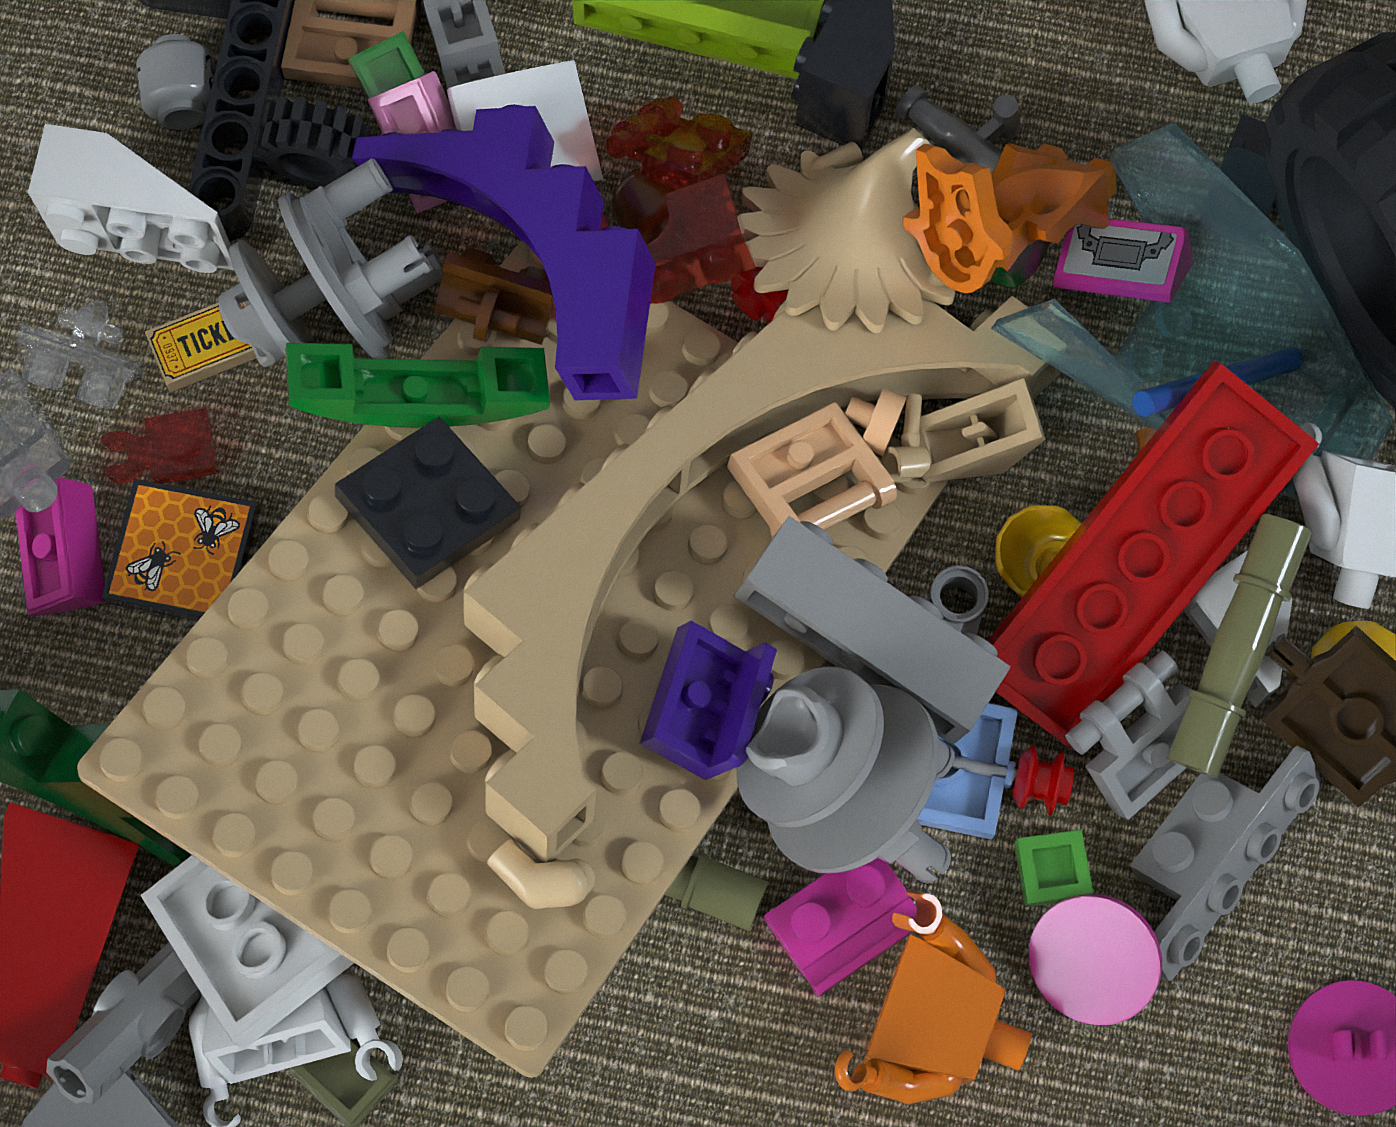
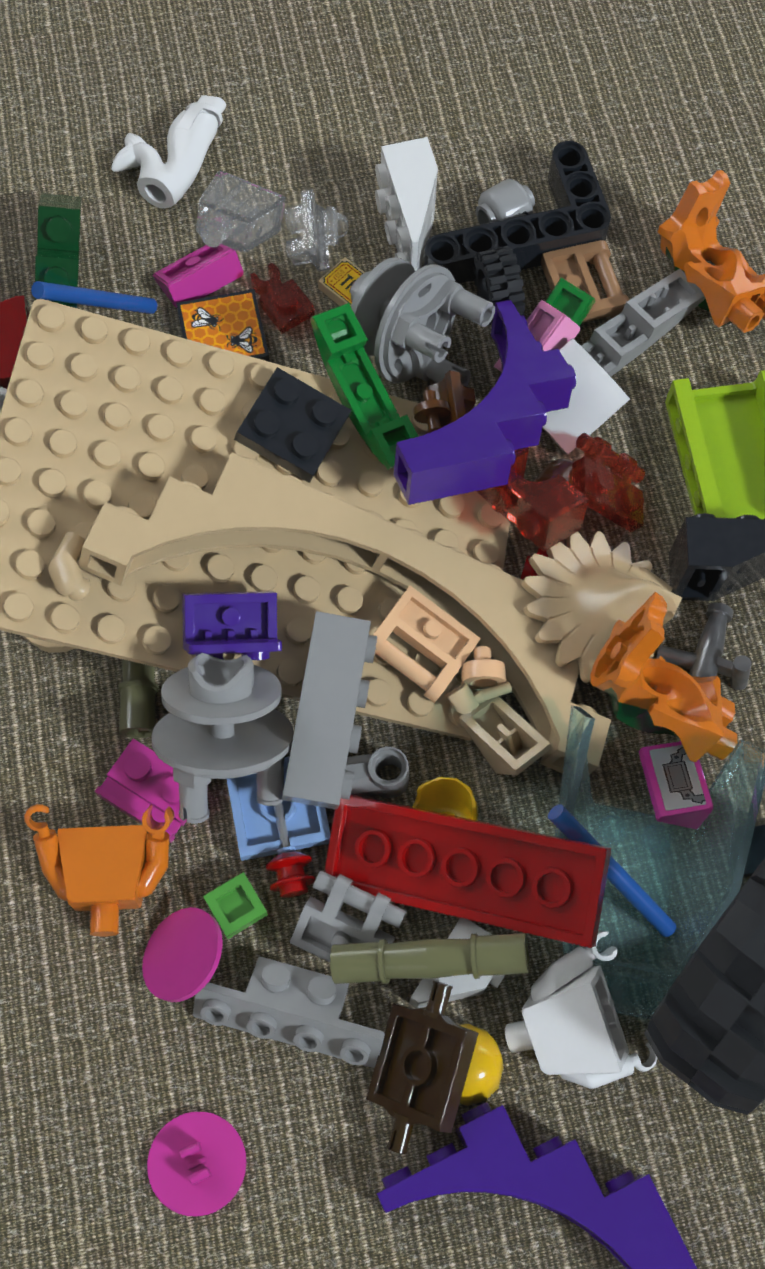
camera: 65 degrees right, 5 degrees down
(72, 700) = (93, 297): none -> blue bar

